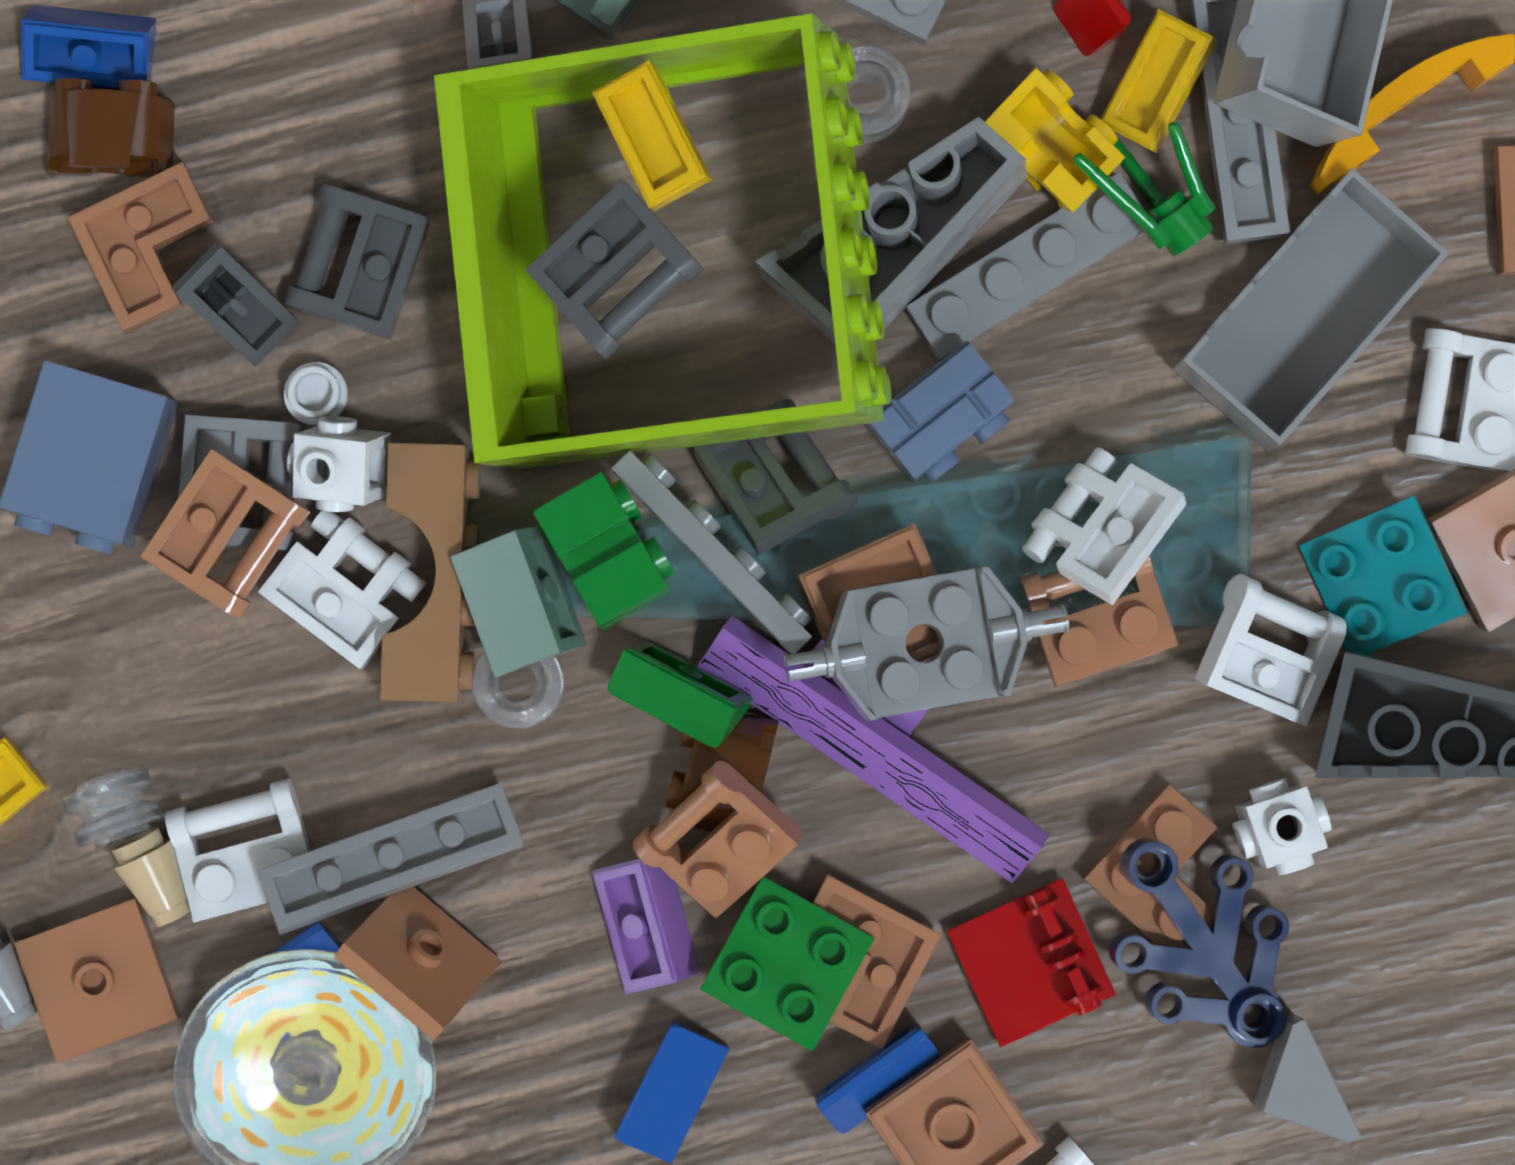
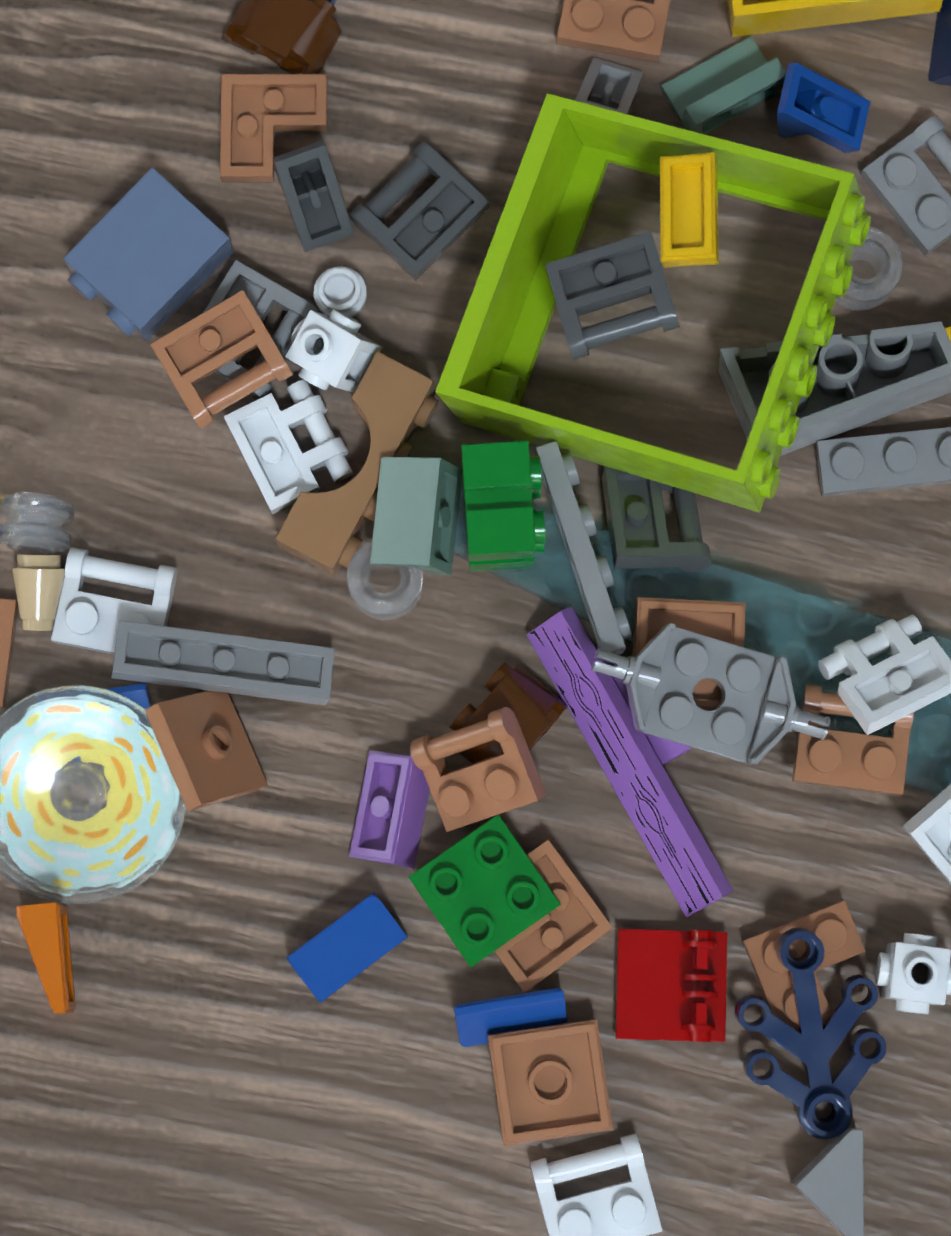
camera: 30 degrees right, 5 degrees down
(678, 693) = (502, 645): green slope -> none
(941, 413) = (805, 534): sand blue brick -> none

